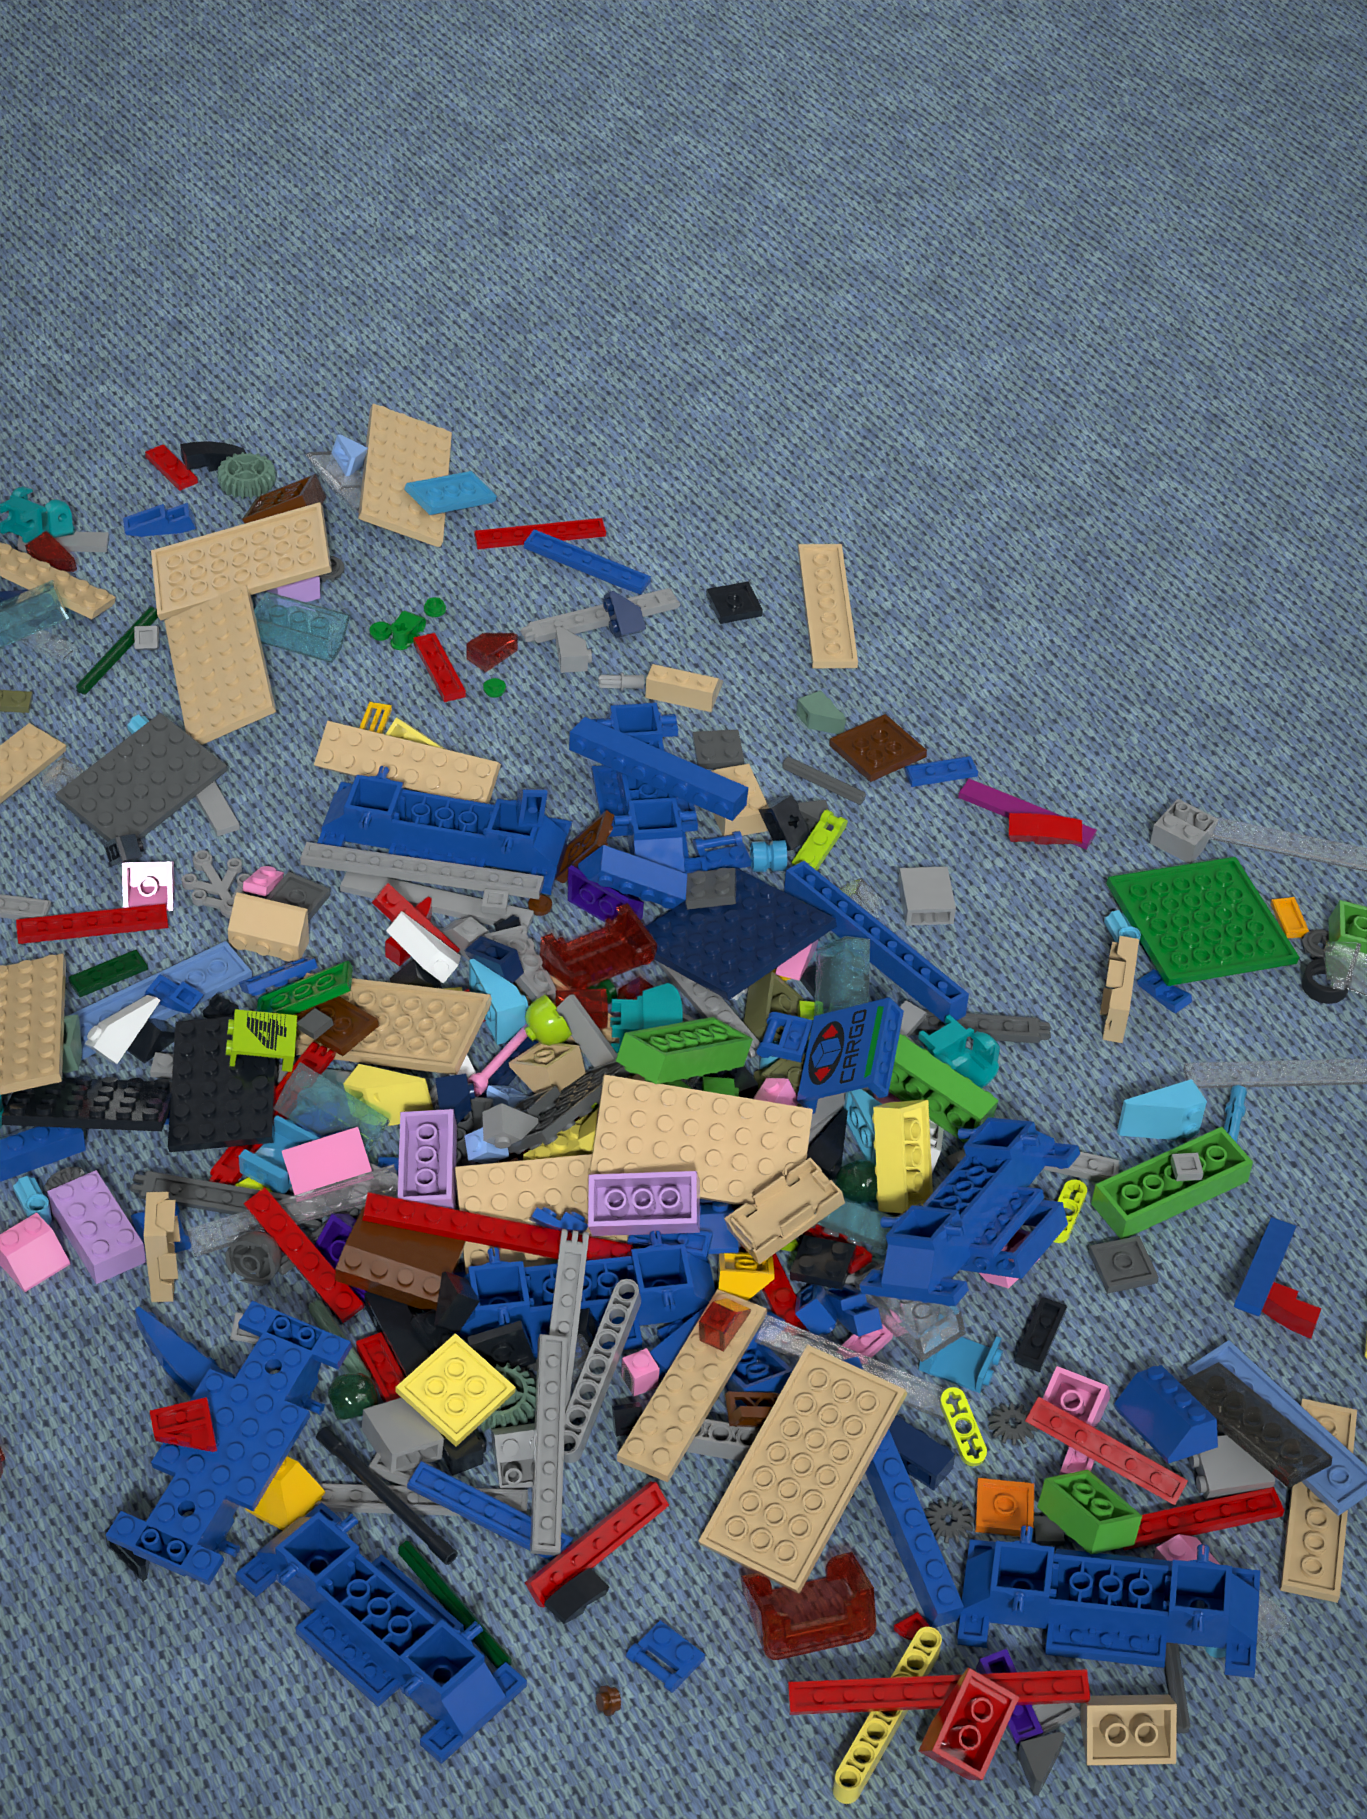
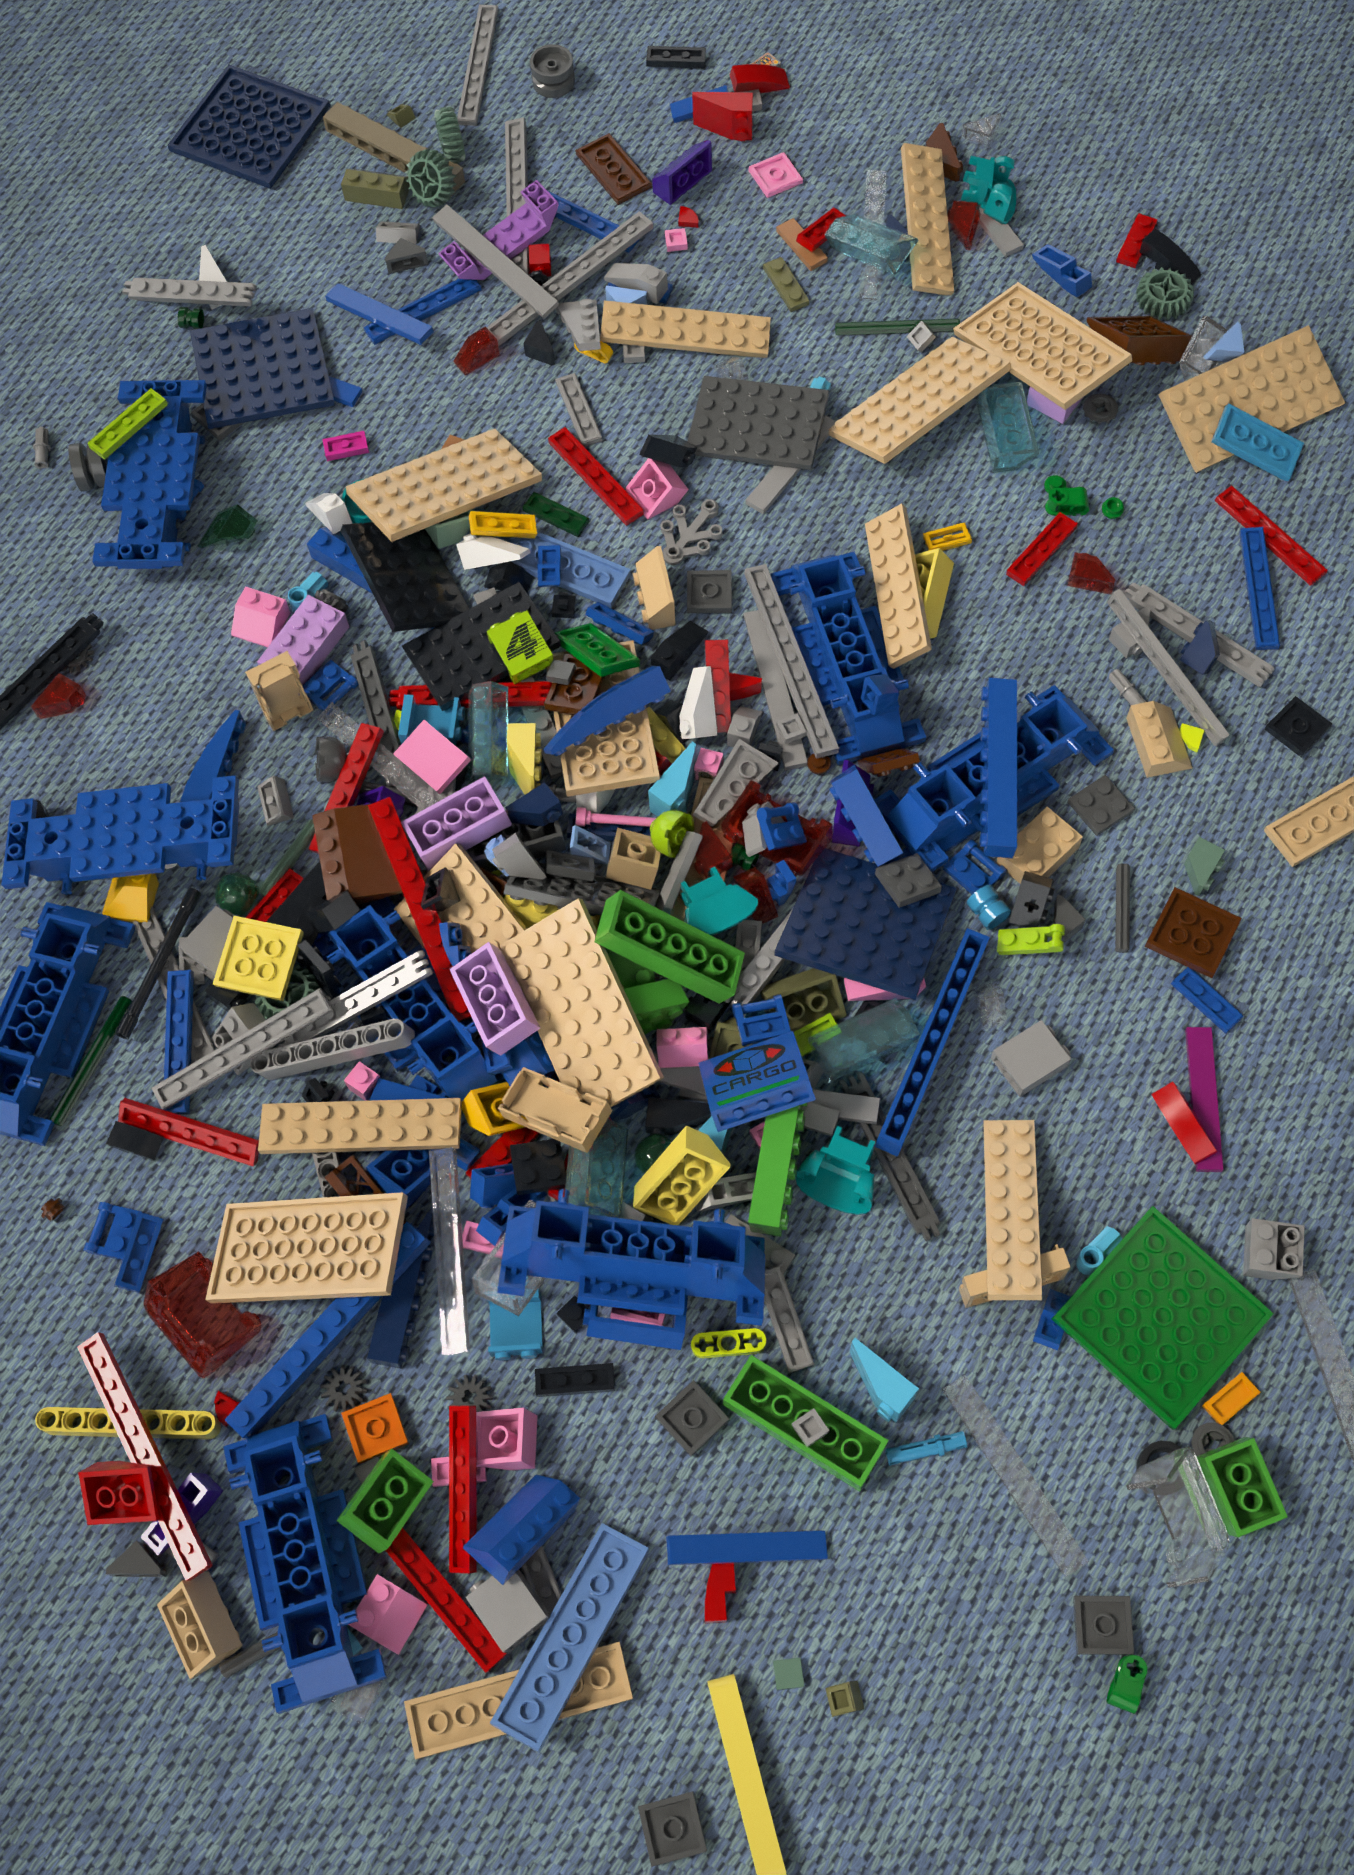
camera: 70 degrees right, 20 degrees up
(102, 1002) = (502, 524): none -> yellow plate
(185, 1425) = (103, 796): red wing -> none
(262, 881) = (708, 558): bright pink plate -> none
(343, 946) = (678, 648): none -> black slope
(389, 1001) = (610, 708): none -> blue slope
(493, 1202) = (439, 892): none -> black slope
(494, 687) = (1049, 600): green plate -> none
(496, 957) = (704, 760): dark blue slope -> none
(591, 957) = (752, 831): none -> light grey slope
(605, 942) = (781, 834): none -> blue plate
(626, 641) = (1167, 668): none -> light grey tile
(652, 966) = (781, 883): none -> blue slope
(695, 665) = (1191, 736): none -> neon yellow tile
(705, 1638) = (138, 1252): none -> blue plate
(722, 1323) = (416, 1117): clear red slope -> none
(948, 1410) = (425, 1359): neon yellow beam -> none
(975, 1310) = (572, 1314): none -> black plate
(1063, 957) = (1012, 1211): none -> tan plate
(1257, 1426) = (540, 1609): clear smoke plate -> none

